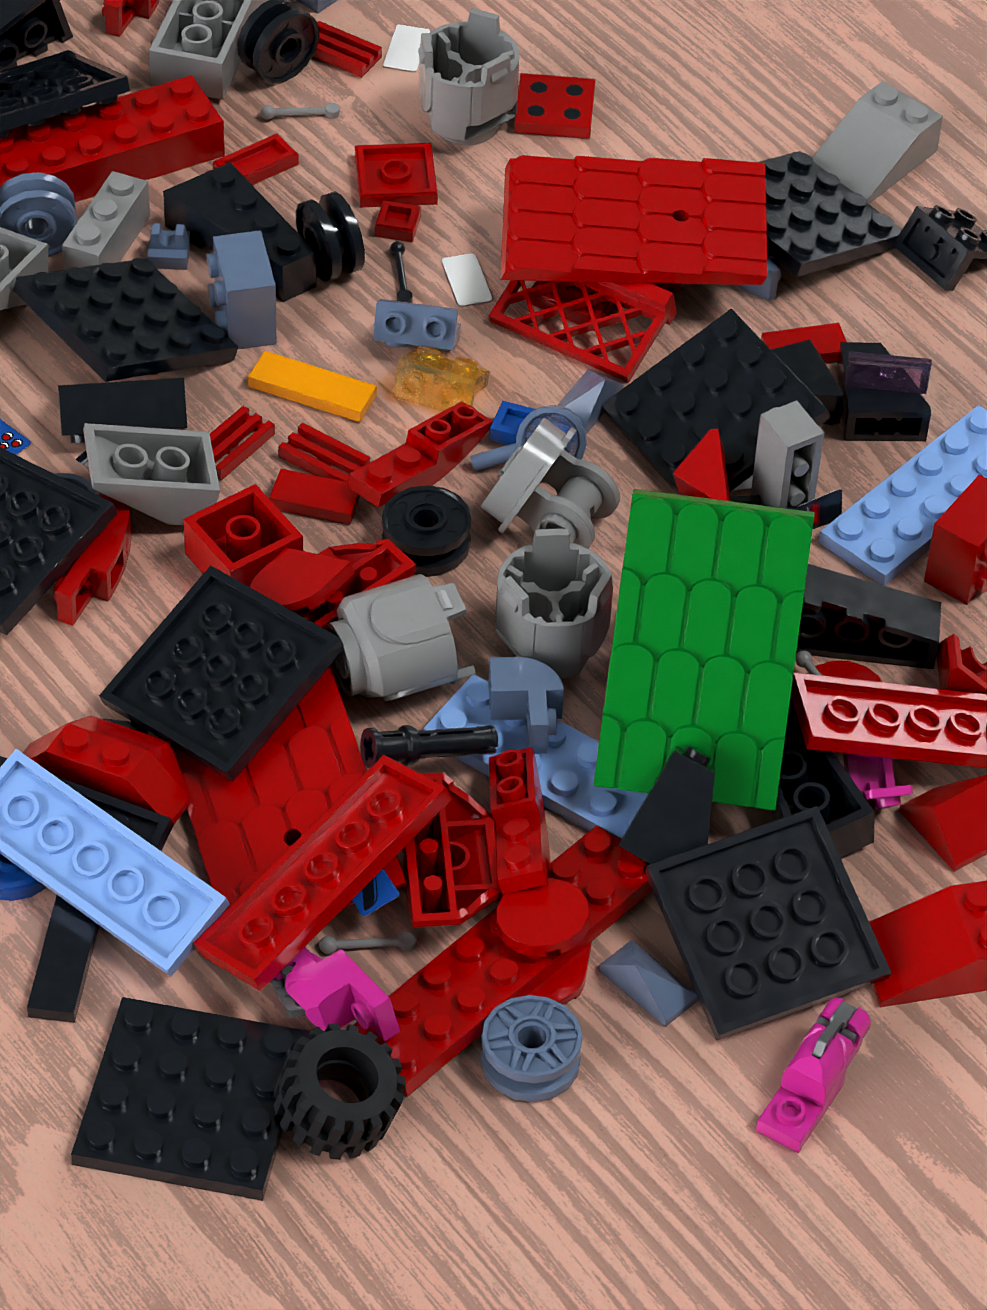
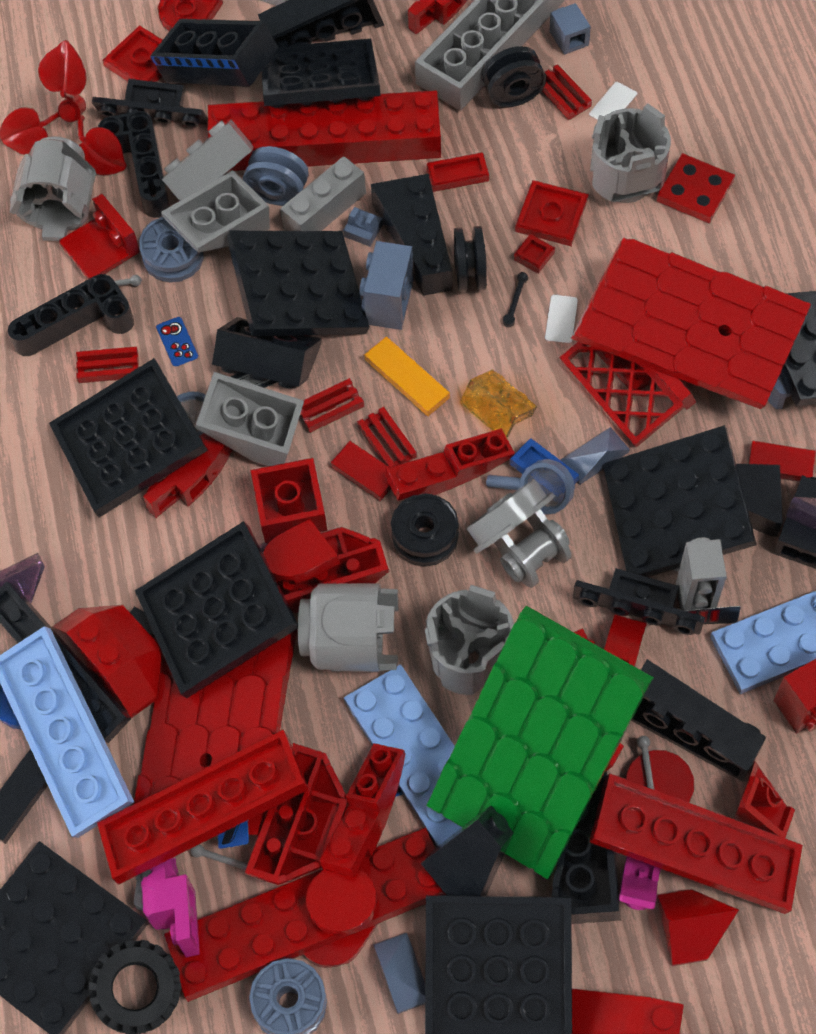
camera: 30 degrees right, 15 degrees up
(331, 110) = (533, 142): light grey hinge -> none
(410, 745) = (312, 721): black pin -> none
(416, 324) = (497, 356): sand blue bracket -> none
(529, 691) = (423, 703): sand blue brick -> none
(704, 470) = (641, 562): red slope -> none

